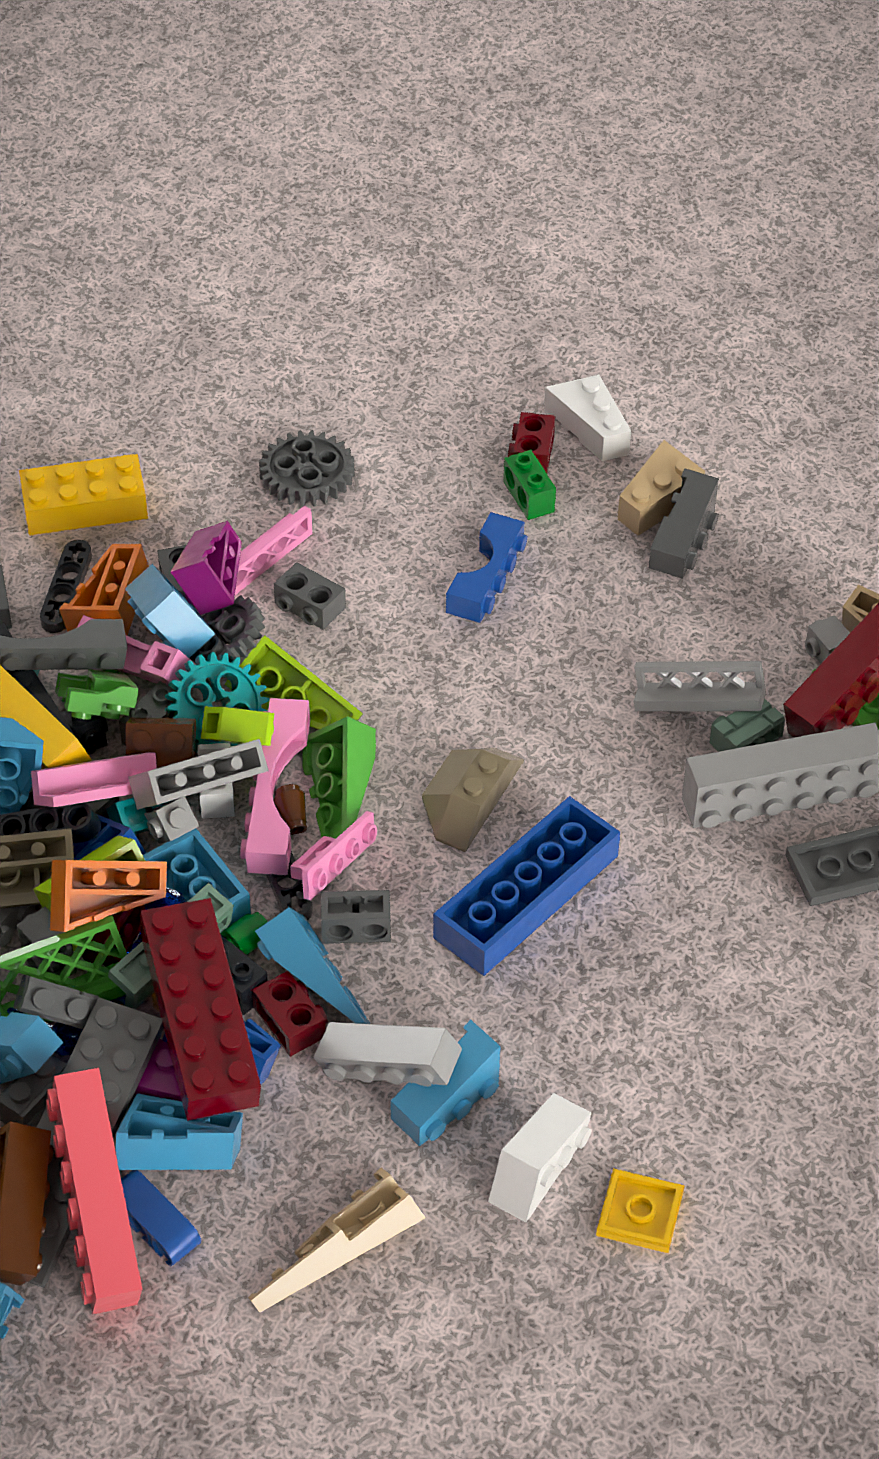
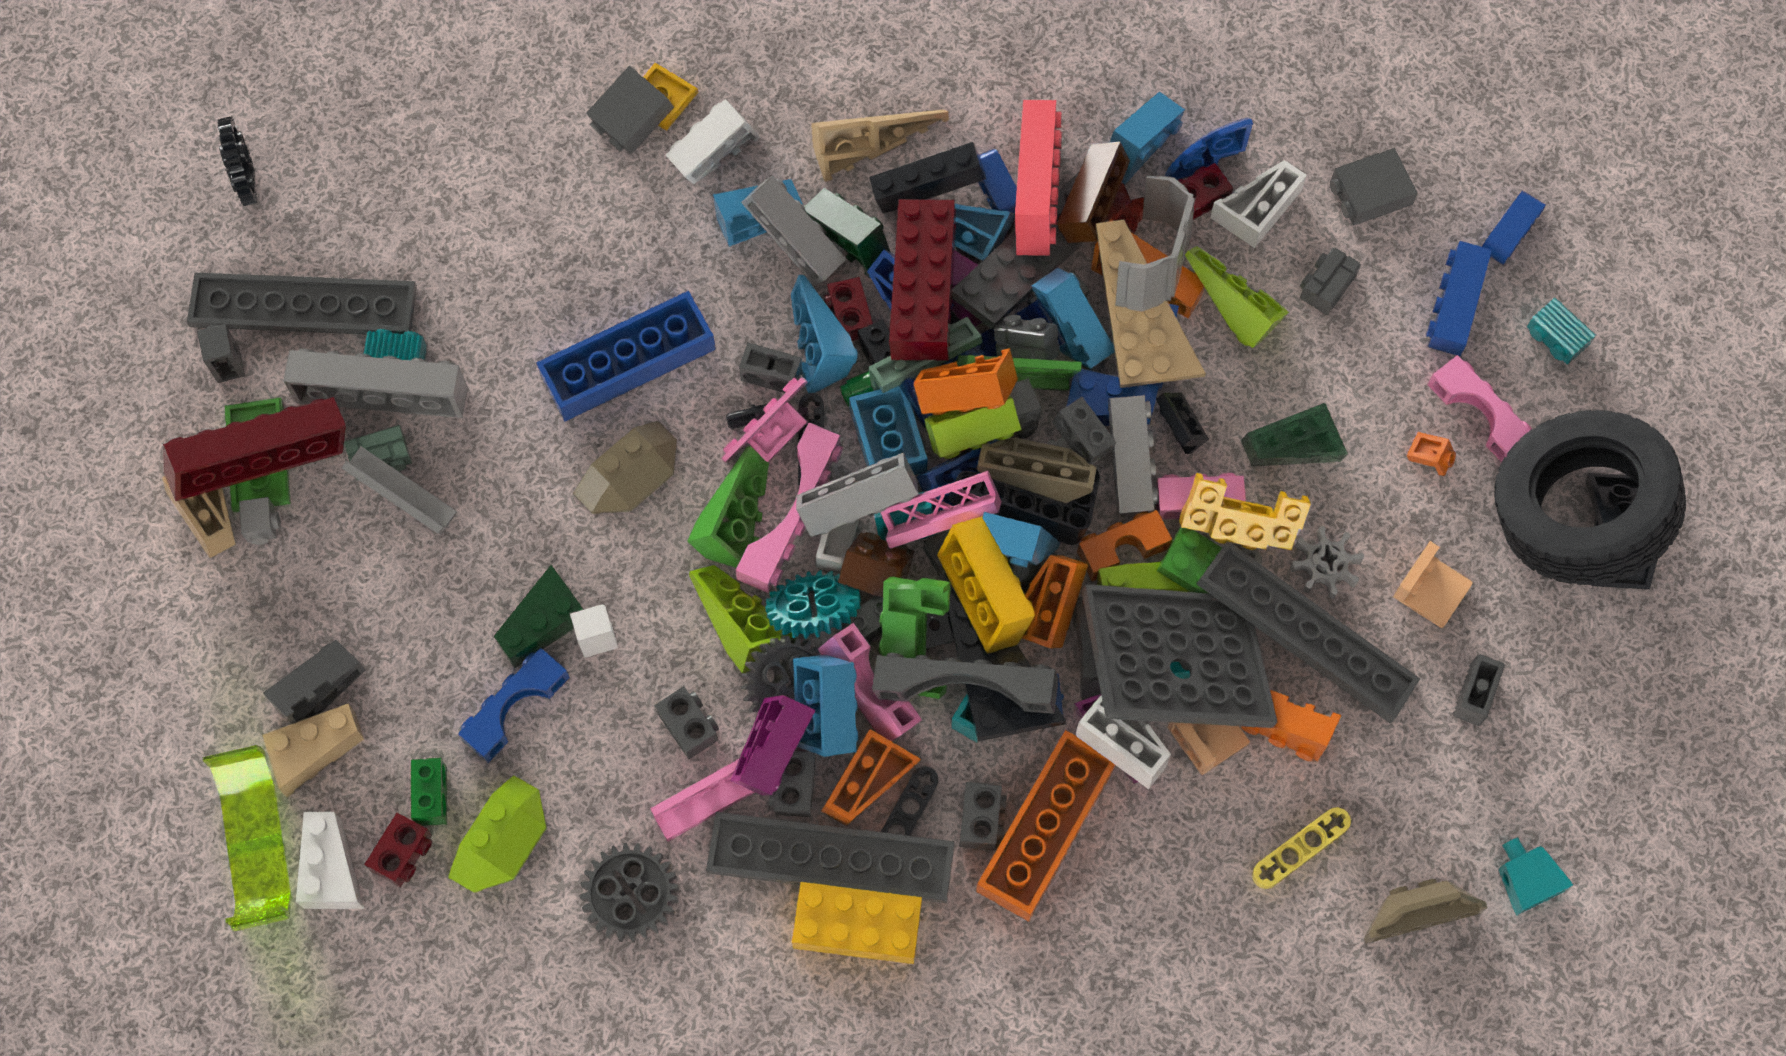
camera: 160 degrees left, 20 degrees up
(89, 534) = (830, 856): none -> dark grey plate
(237, 725) = (806, 555): lime slope -> none
(242, 1178) = (928, 177): none -> black brick
(291, 807) = (782, 497): reddish brown cone -> none
(327, 1096) = (848, 227): none -> wedge
(359, 877) = (743, 417): none -> black axle
(433, 628) = (594, 630): none -> white panel
(443, 481) = (500, 837): none -> lime wedge
(493, 635) = (538, 618): none -> dark green wedge
(654, 410) = (252, 837): none -> clear neon green windscreen
(664, 1161) = (629, 111): none -> dark grey brick
(787, 823) = (403, 346): none -> teal brick

